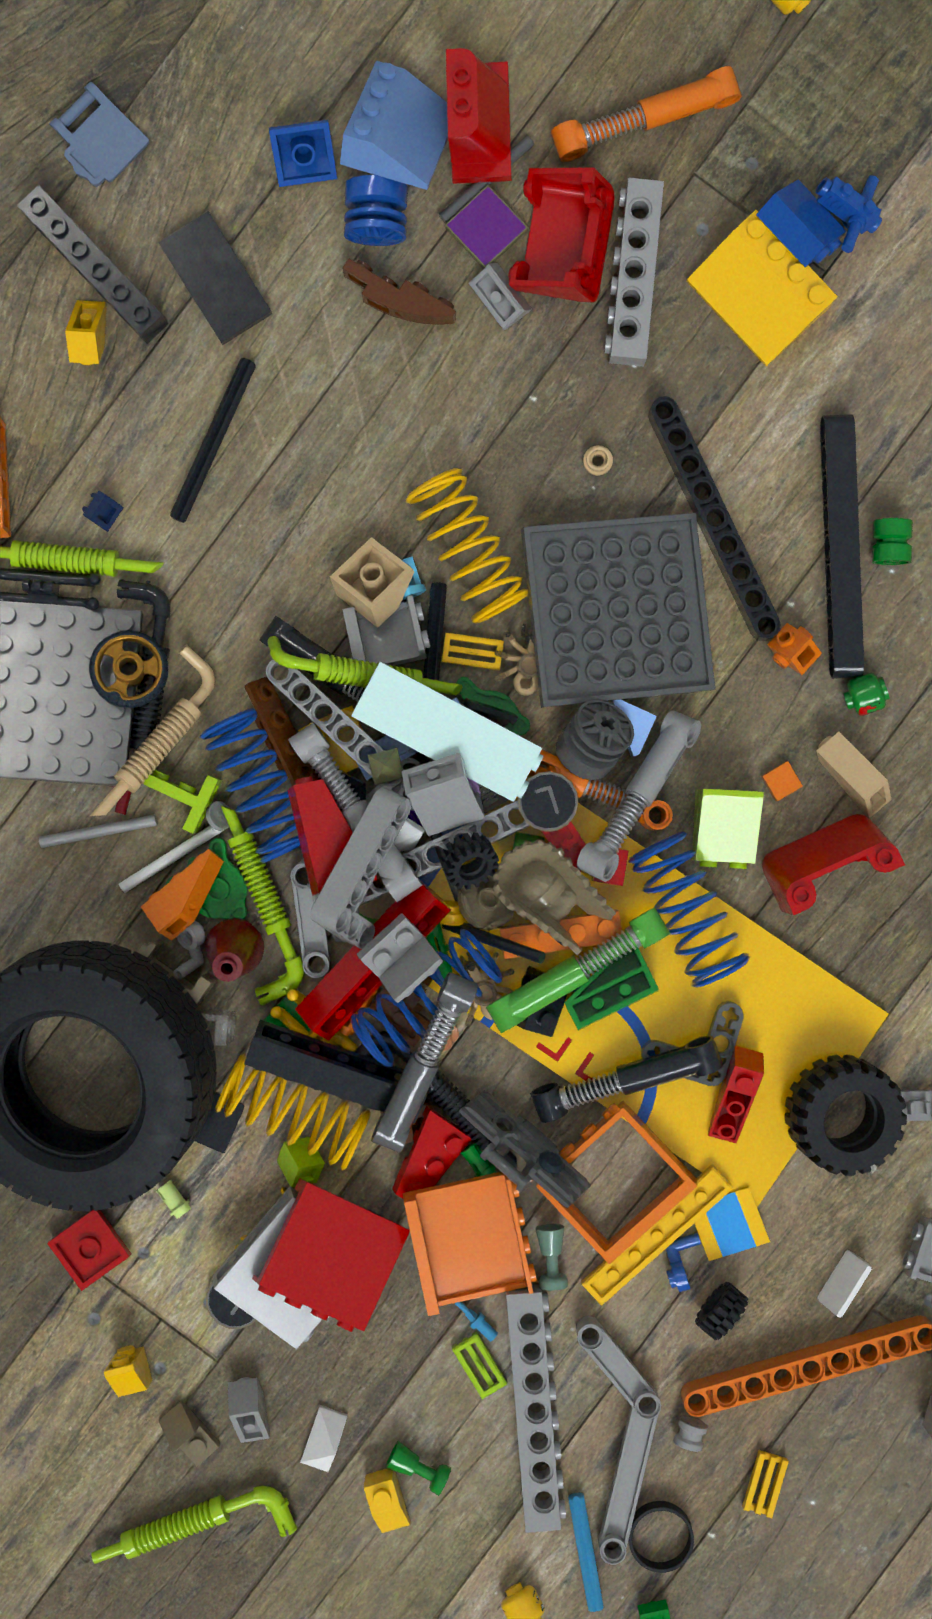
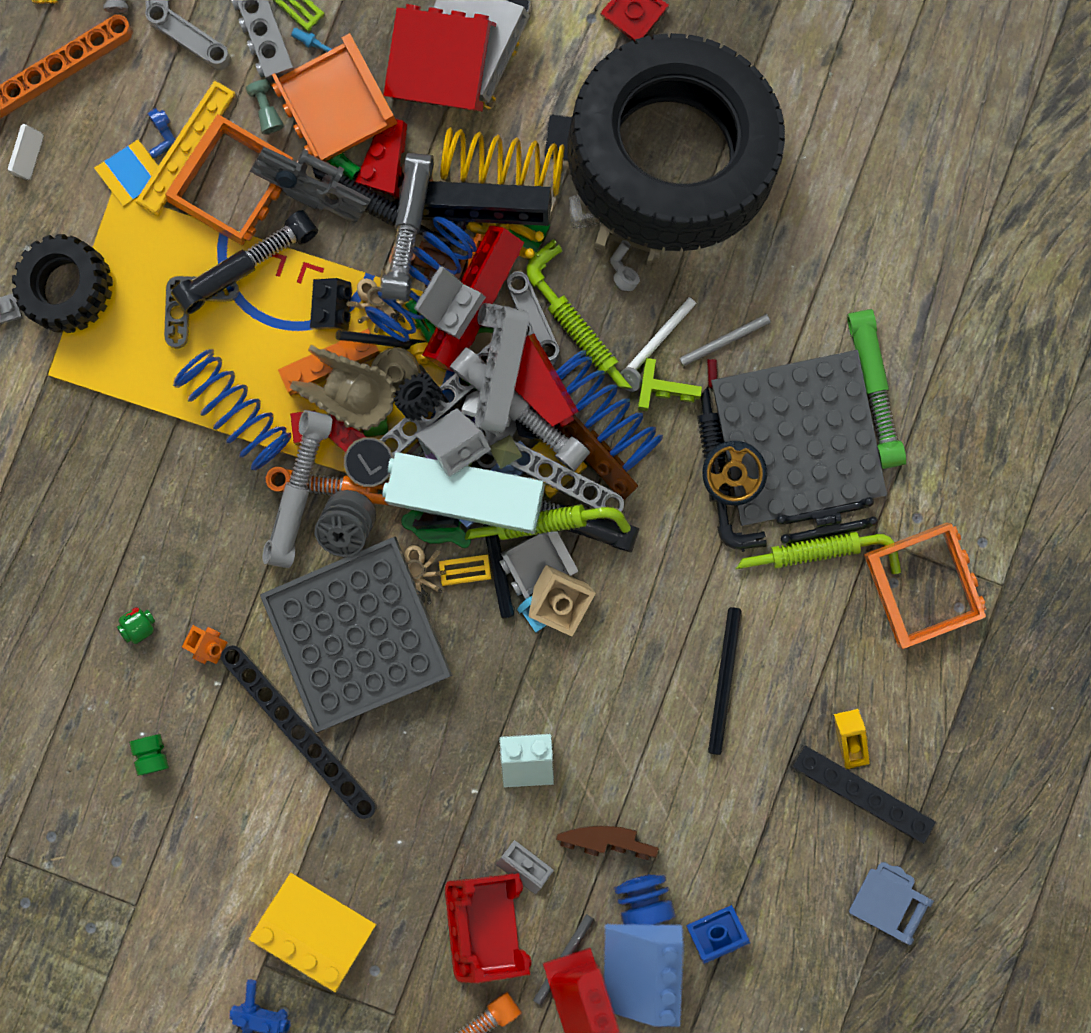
camera: 160 degrees right, 5 degrees down
(102, 510) = (796, 597): dark blue tile -> none
(163, 737) = (692, 427): tan piece -> none
(173, 1199) = (577, 66): yellowish green pin -> none
(181, 899) = (640, 301): orange slope -> none
(215, 278) = (760, 813): black tile -> none
(229, 889) = (619, 322): green tile -> none
(234, 949) = (587, 276): dark red cone -> none
(298, 1164) = (487, 122): lime panel -> none
(441, 482) = (462, 603): yellow piece -> none
(462, 414) = (526, 760): none -> light aqua slope
(486, 227) = (552, 919): dark purple tile -> none
(574, 972) = (310, 332): bright green piece -> none
(602, 452) = (407, 762): tan plate -> none
(612, 989) = (275, 331): green wedge -> none
(642, 724) = (312, 550): light blue slope -> none
(647, 196) = (424, 981): light grey brick -> none
(721, 1310) = (118, 102): black tyre -> none
(726, 827) = (220, 486): slope -> none
(737, 1094) = (152, 275): red slope -> none
(781, 781) = (185, 537): orange tile -> none
(802, 224) = (293, 991): blue brick -> none
(821, 852) = (134, 487): red windscreen -> none
(842, 546) = (188, 740): black beam -> none
(854, 774) = (129, 558): tan slope -> none

